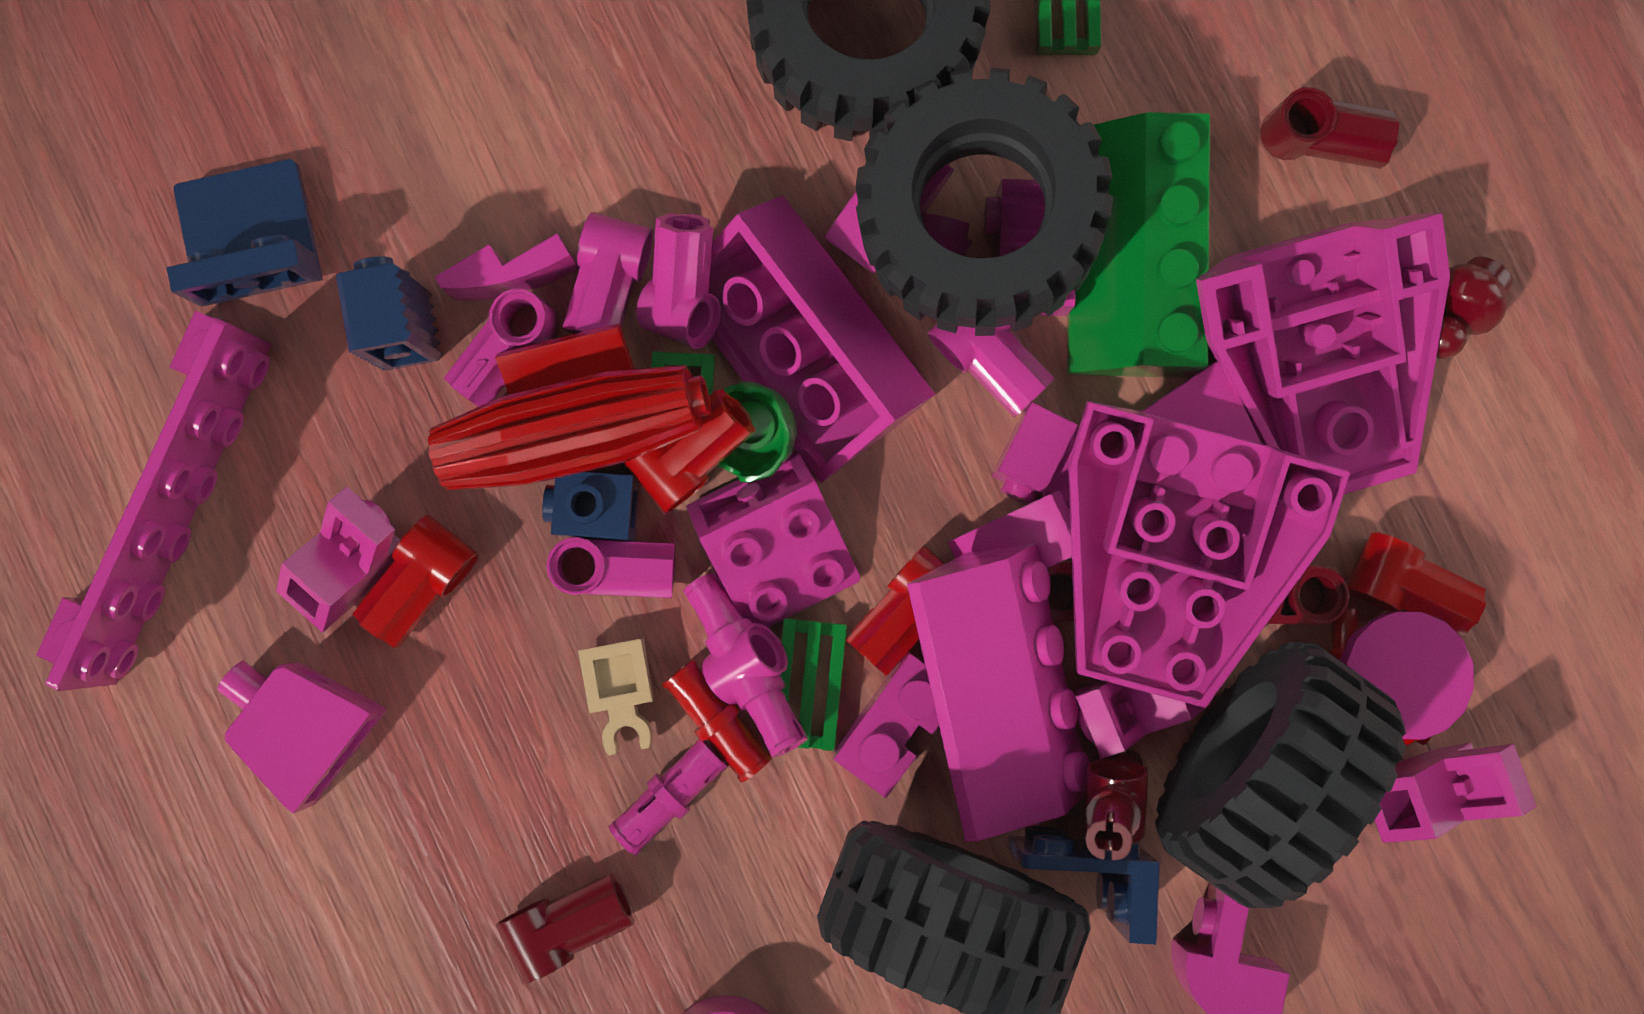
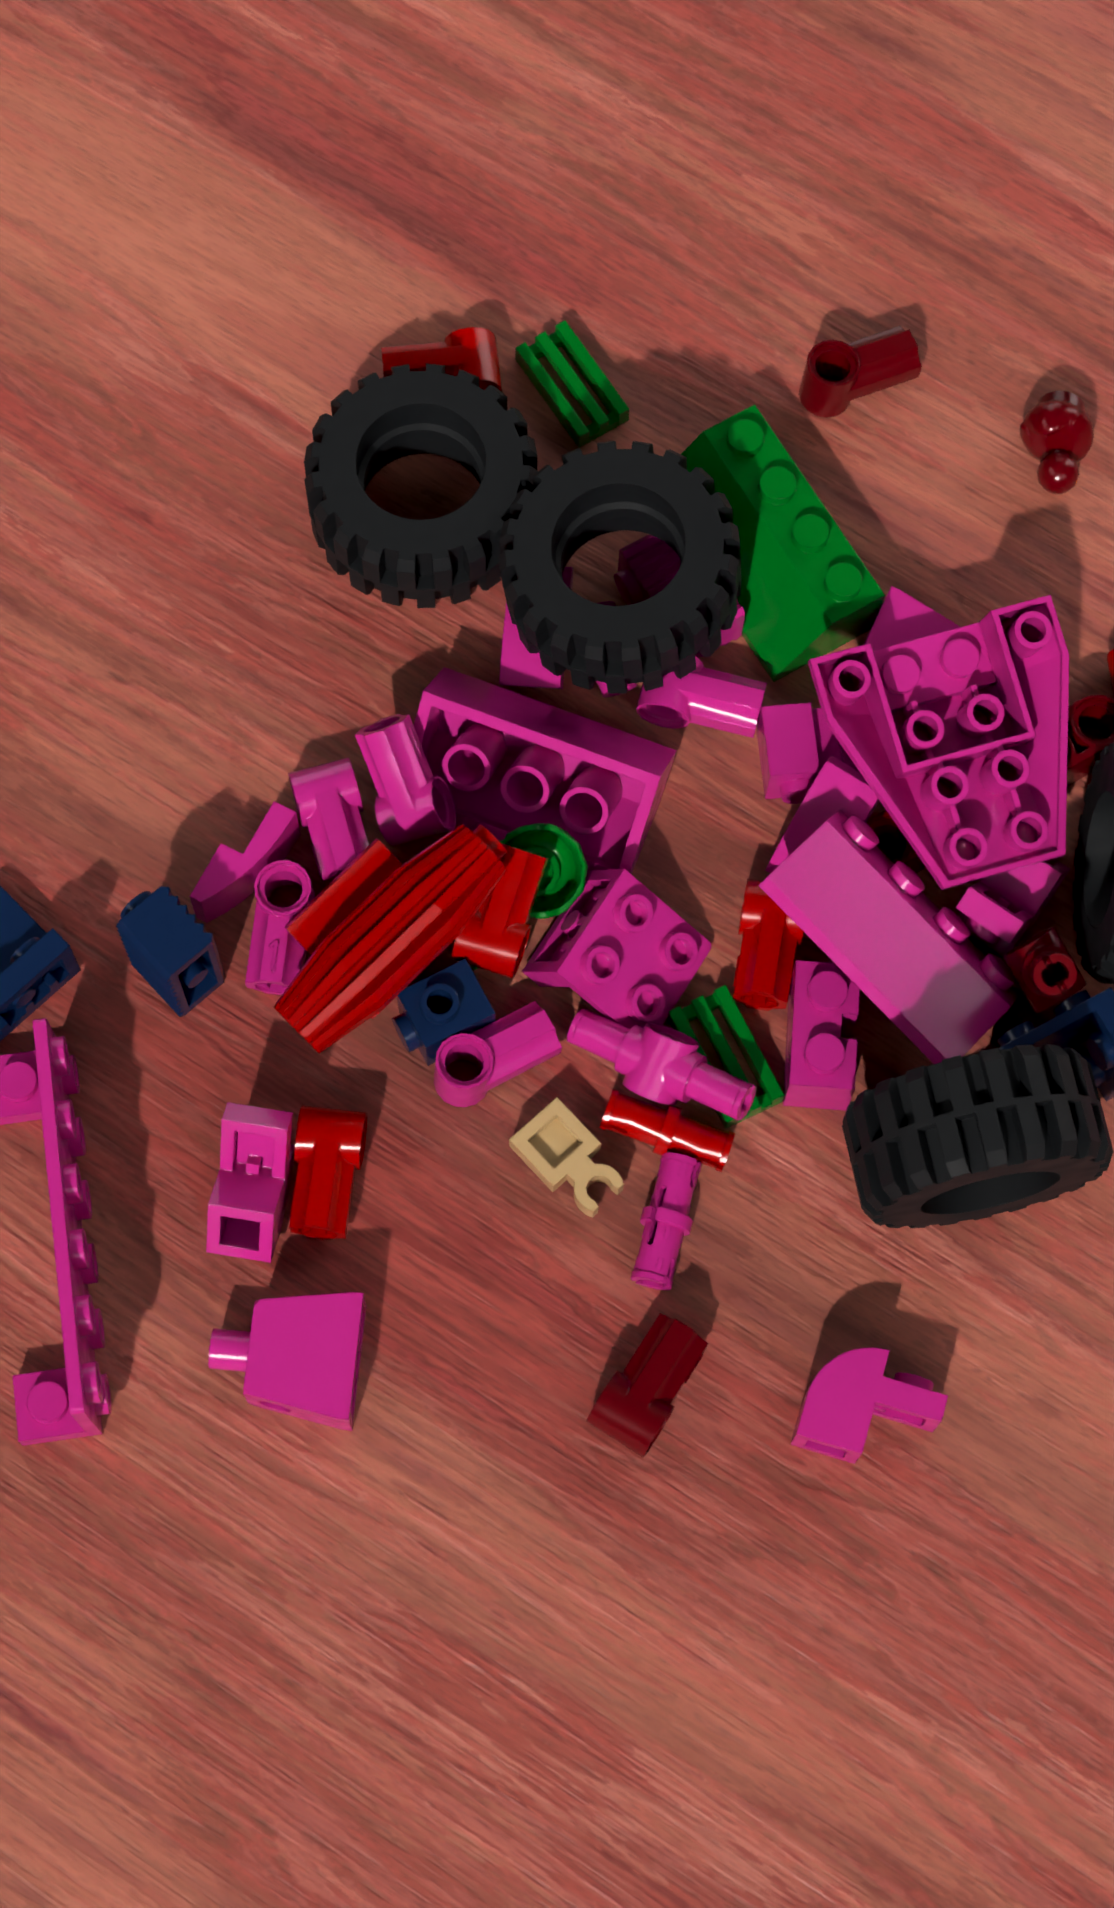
camera: 30 degrees left, 15 degrees down
(1335, 340) = (974, 518): dark pink wedge -> none

